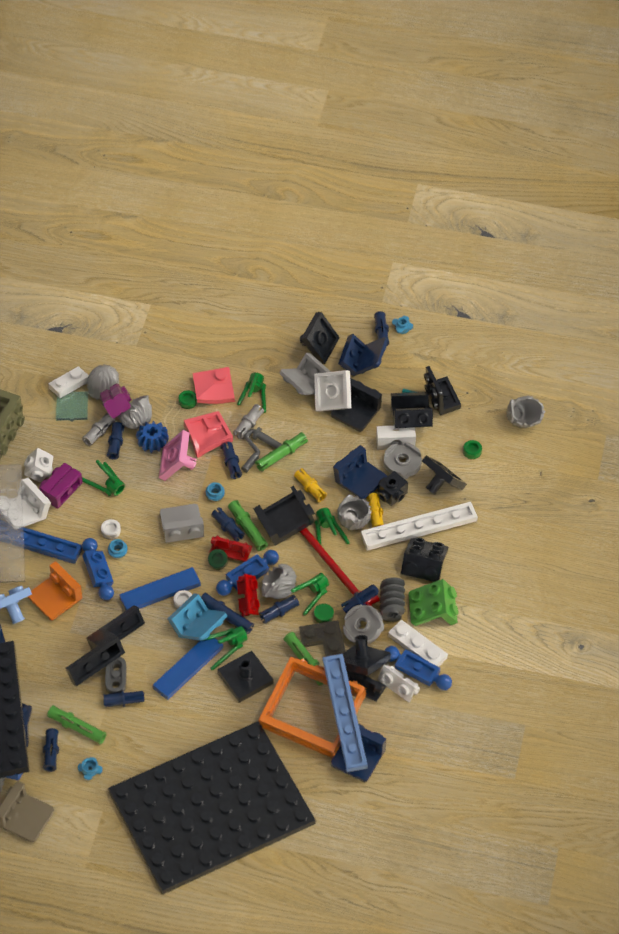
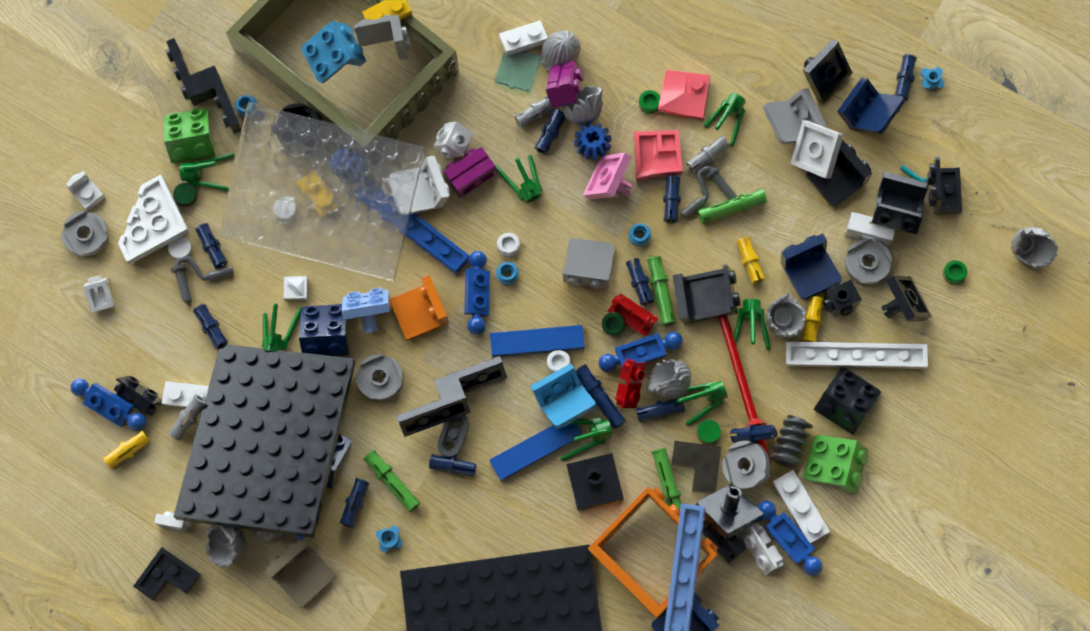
camera: 25 degrees right, 20 degrees up
(40, 663) = (367, 372): none -> light grey plate

